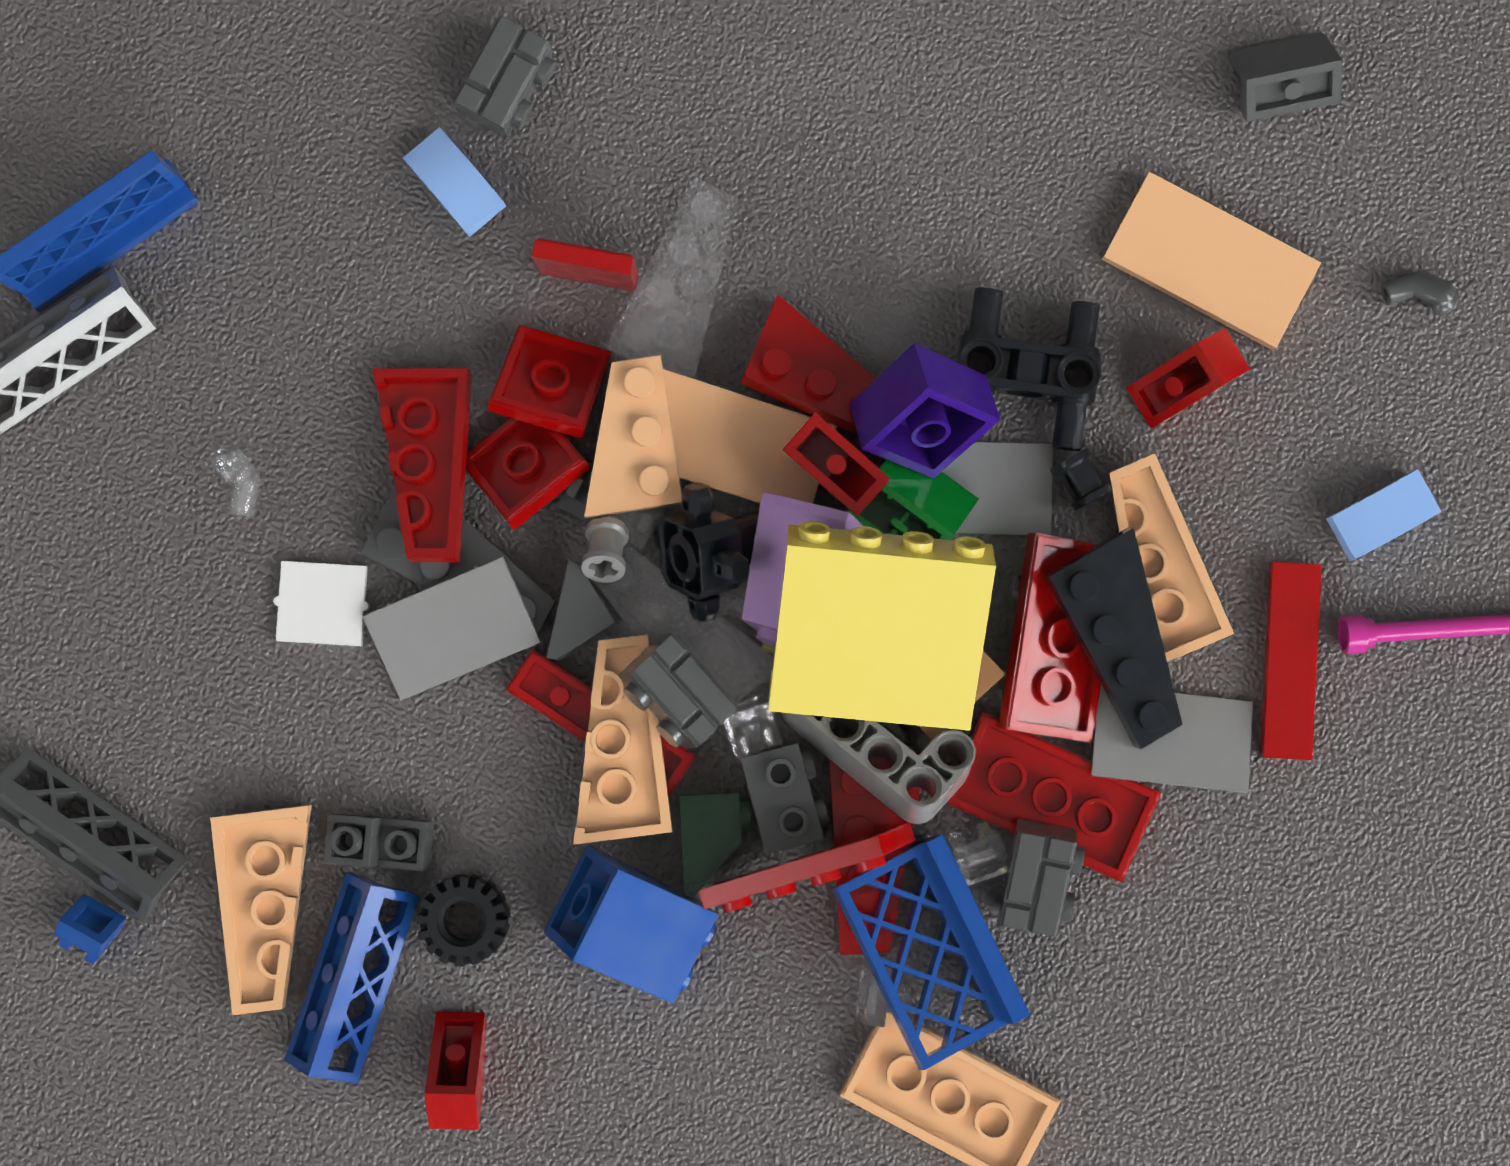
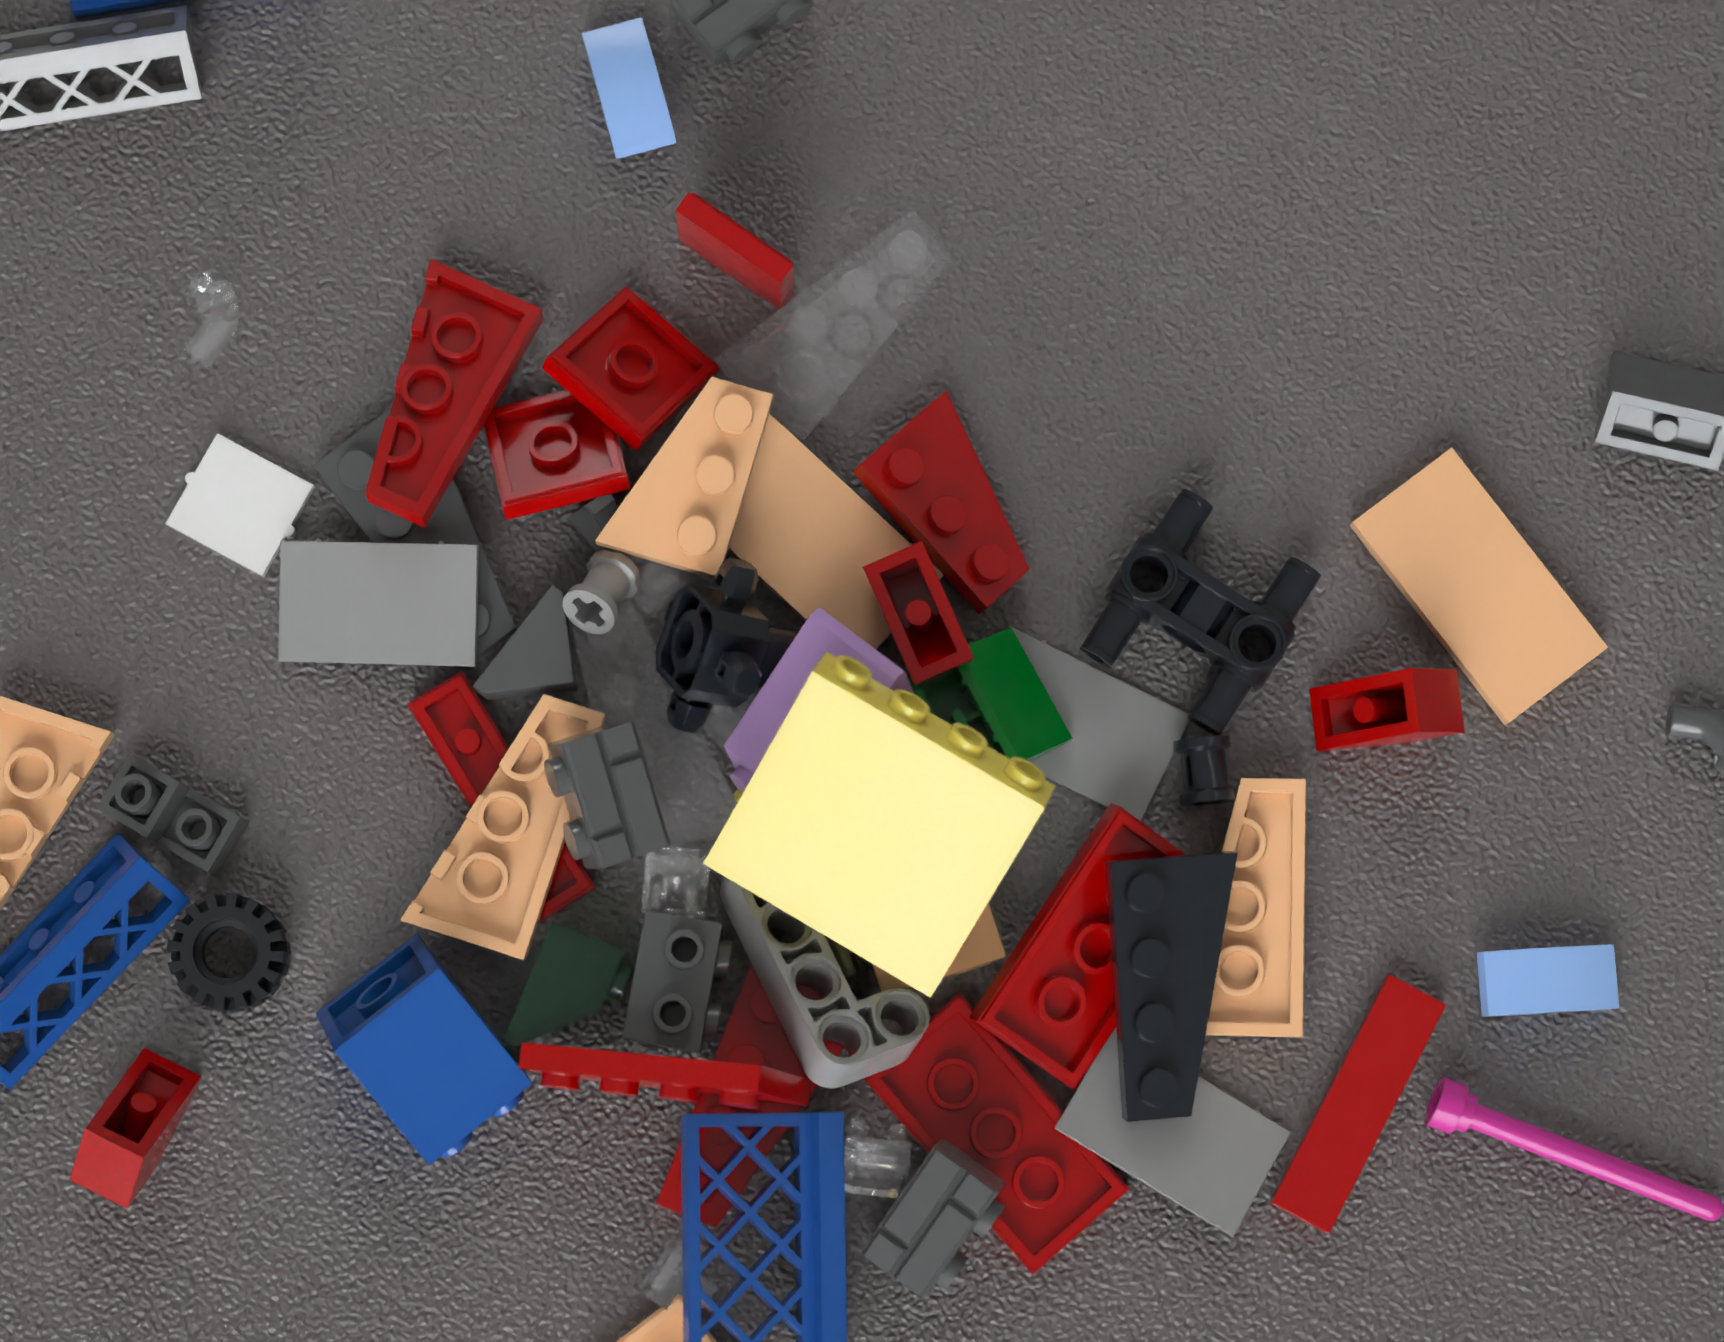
camera: 20 degrees right, 5 degrees down
(924, 411) = (1051, 600): dark purple brick -> none

